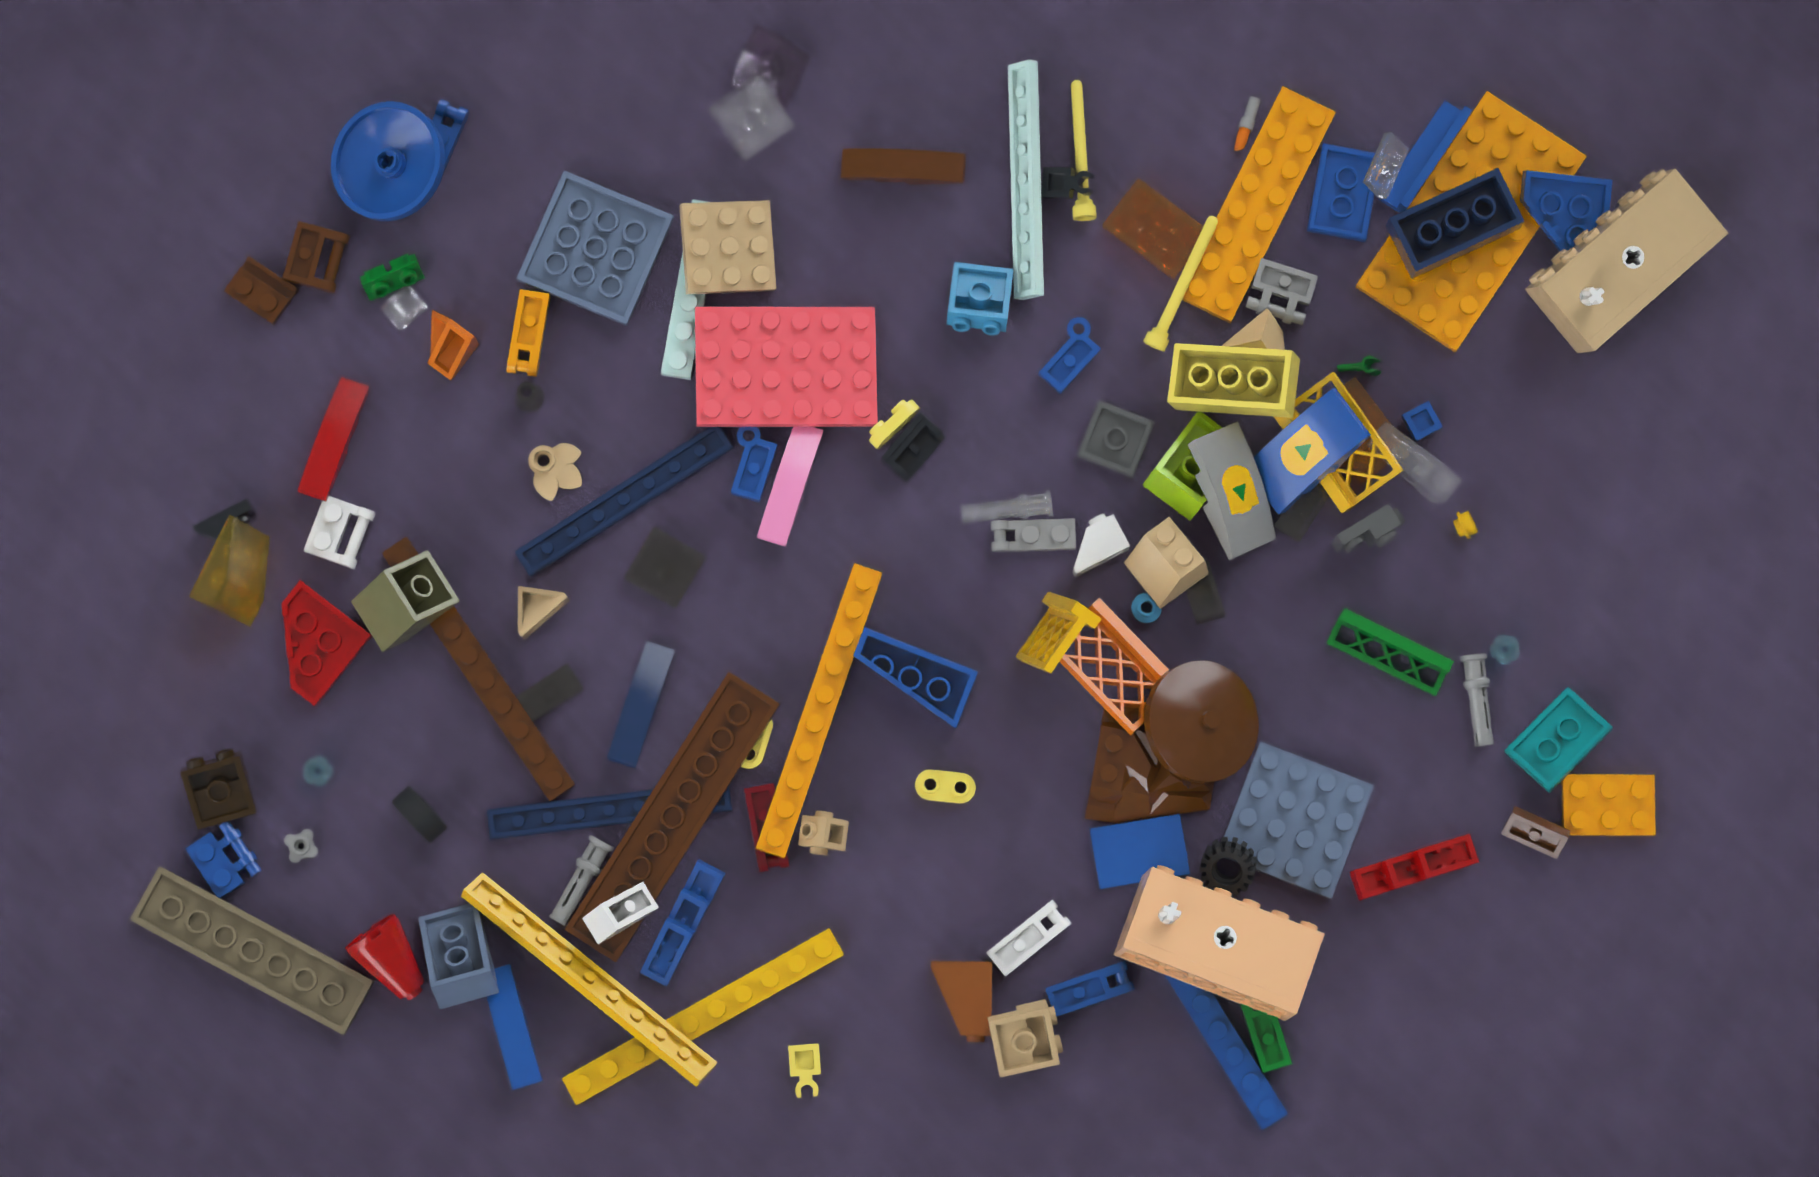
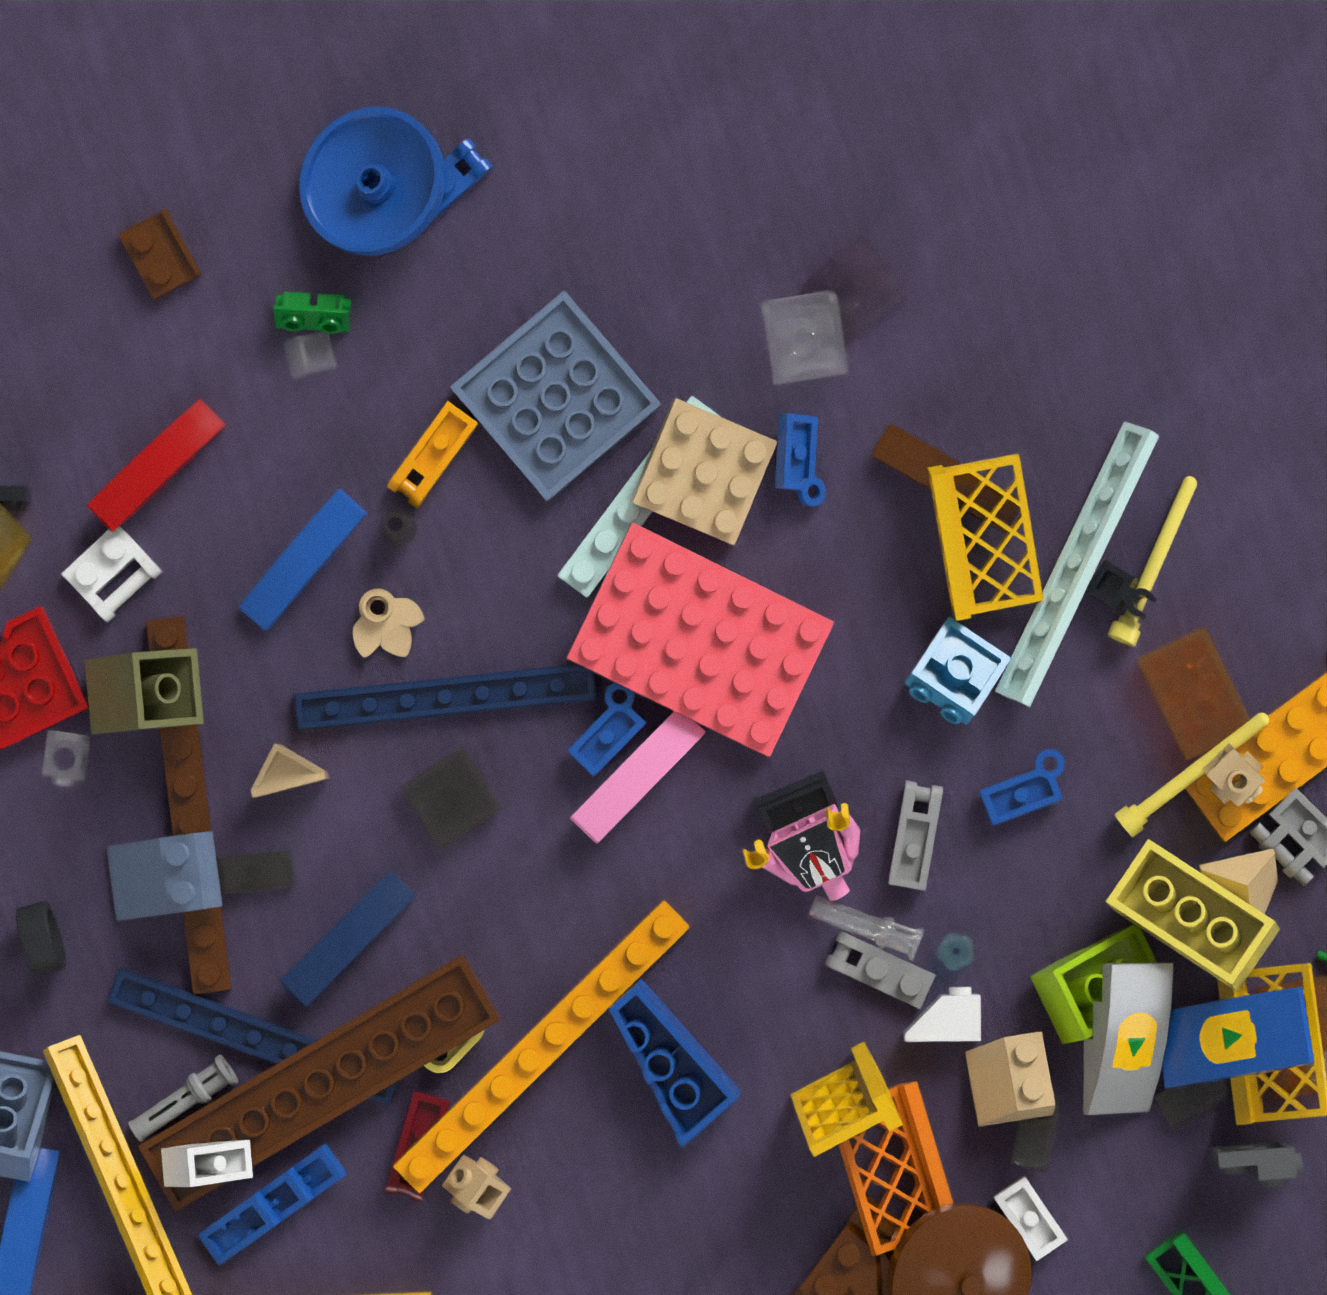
camera: 30 degrees right, 5 degrees up
(305, 256) = (230, 239): reddish brown plate -> none
(363, 668) = (78, 745): none -> clear brick
(449, 345) = (337, 424): orange slope -> none
(472, 452) = (303, 559): none -> blue slope
(485, 725) = (164, 876): none -> sand blue slope
(789, 204) = (798, 457): none -> blue hinge
(884, 431) = (803, 759): light yellow plate -> none
(930, 207) = (953, 543): none -> yellow fence
(942, 473) = (811, 851): none -> torso
(945, 786) = (639, 1200): light yellow plate -> none
(1010, 429) = (915, 837): none -> light grey plate
(1077, 487) = (952, 941): none -> clear light blue plate
(1115, 439) = (1027, 908): dark grey plate -> none
(1139, 614) = (952, 1112): dark azure plate -> none
(1202, 270) = (1225, 767): none -> tan brick
(1231, 654) = (1030, 1218): none -> white plate

